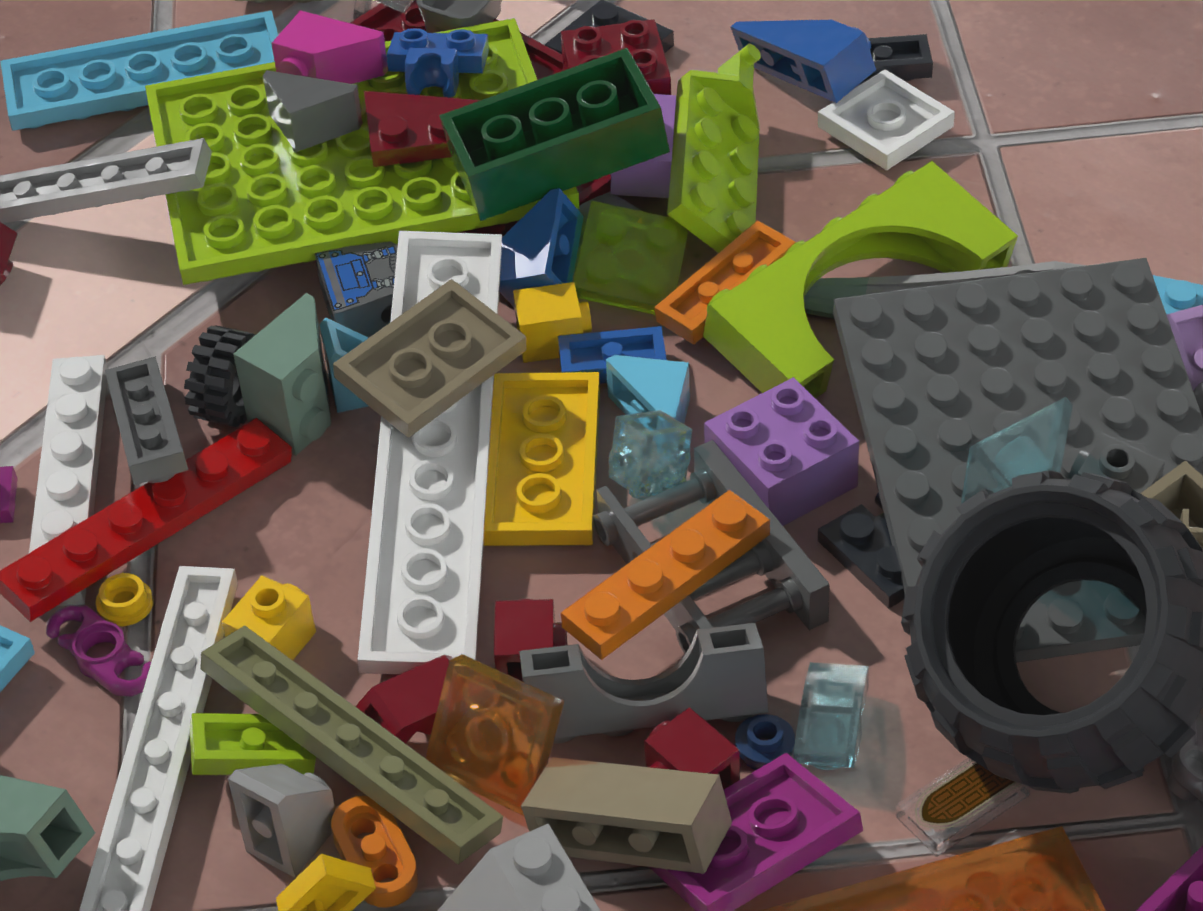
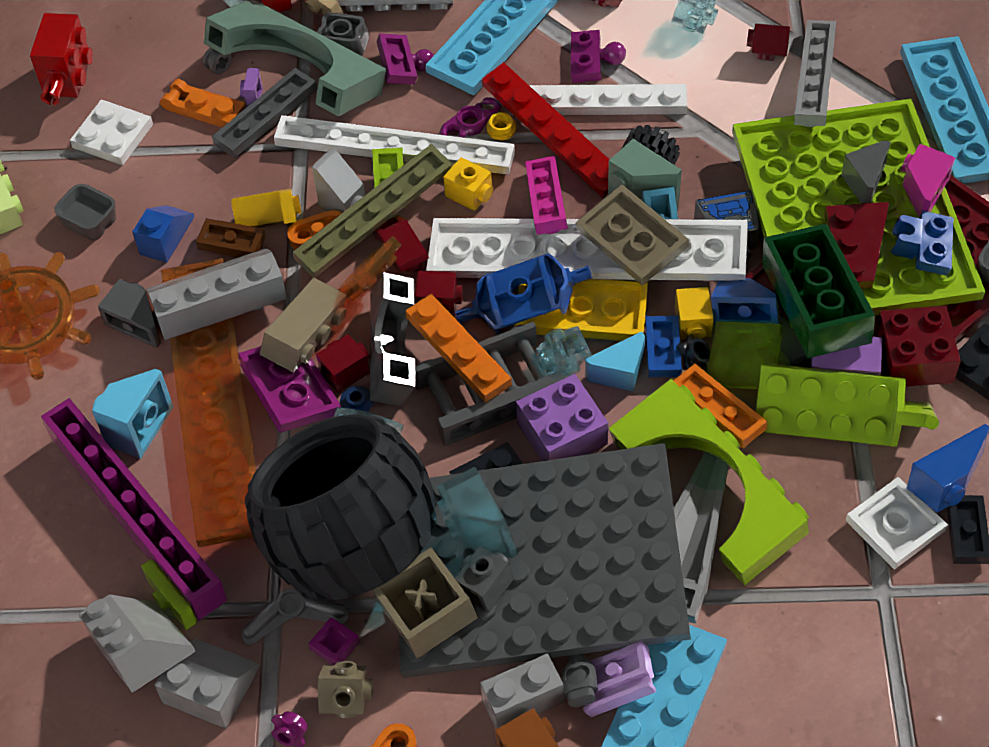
camera: 95 degrees right, 10 degrees up
(145, 422) = (616, 119): dark grey plate -> none
(317, 496) = (546, 196): none -> dark pink plate
(531, 551) = (547, 291): none -> blue plate
(625, 317) = (694, 352): none -> black plate

